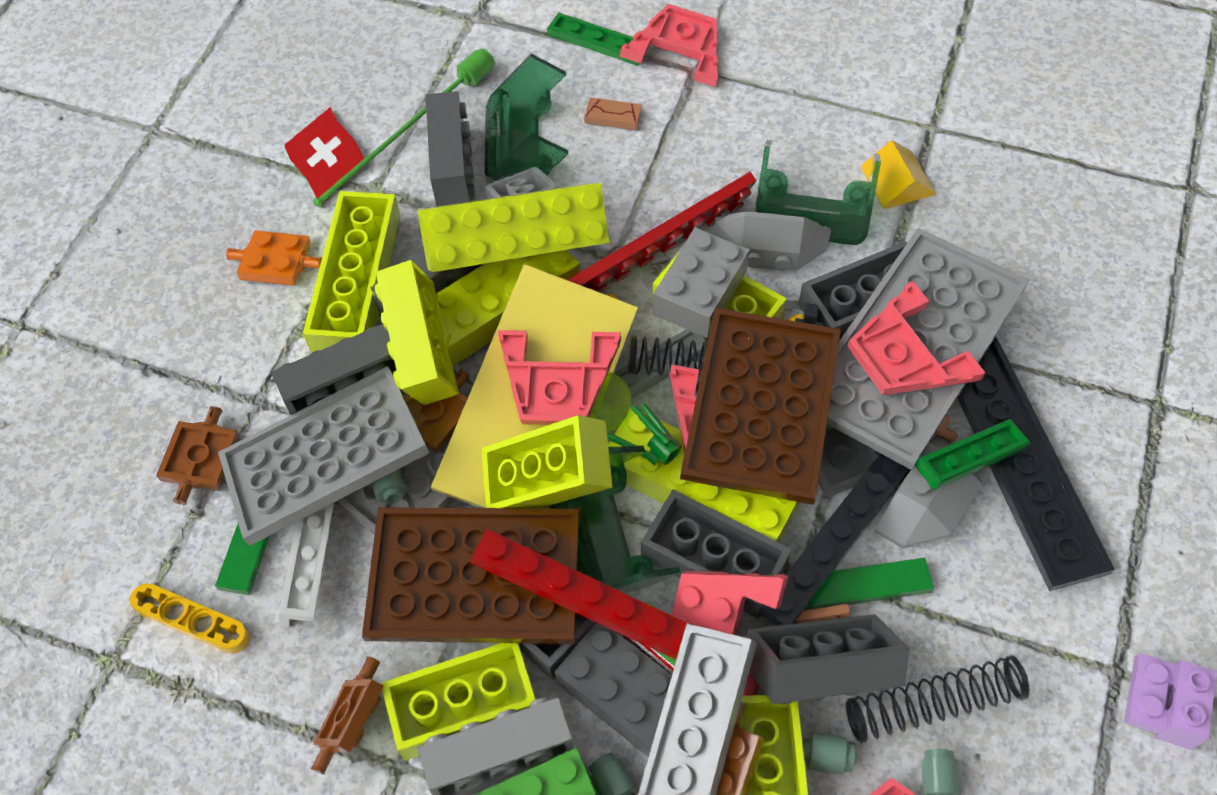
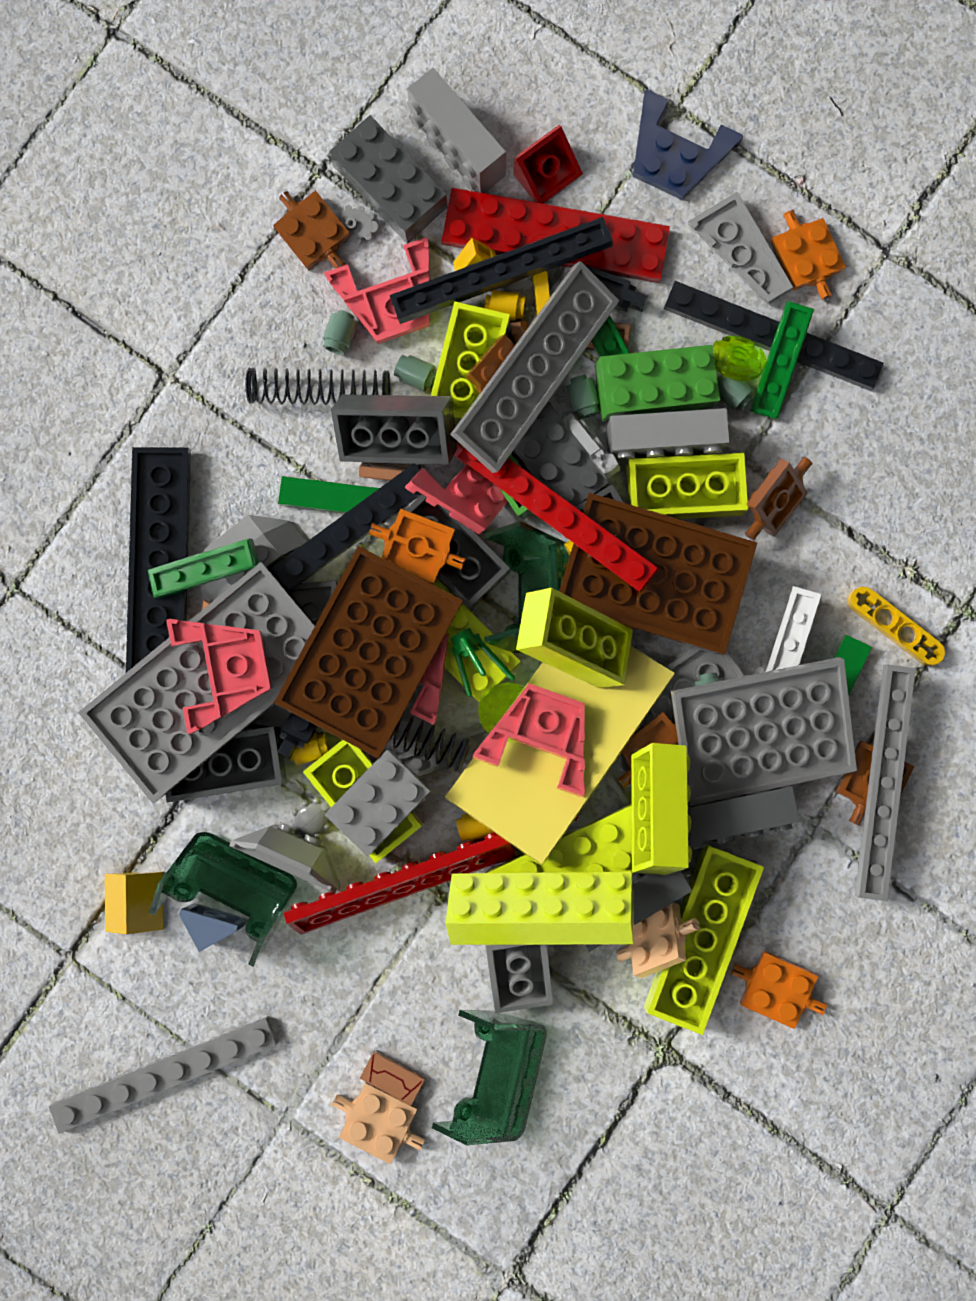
camera: 160 degrees left, 25 degrees up
(185, 452) = (885, 782): none -> light grey plate
(330, 155) = (702, 1114): flag -> none
(390, 244) = (658, 941): none -> light nougat plate
(449, 149) = (580, 1062): dark grey brick -> none
(587, 709) = (604, 462): none -> light grey hinge
(589, 36) = (377, 1196): green tile -> none
(615, 79) = (377, 1123): none -> light nougat plate
(681, 33) = (283, 1168): coral wing -> none
(751, 530) = (418, 545): none -> orange plate
(766, 277) = (311, 817): none -> light grey piece
(809, 71) = (163, 1074): none -> light grey plate
(819, 167) = (209, 925): none -> sand blue slope
(1171, 700) = (143, 336): lavender brick -> none

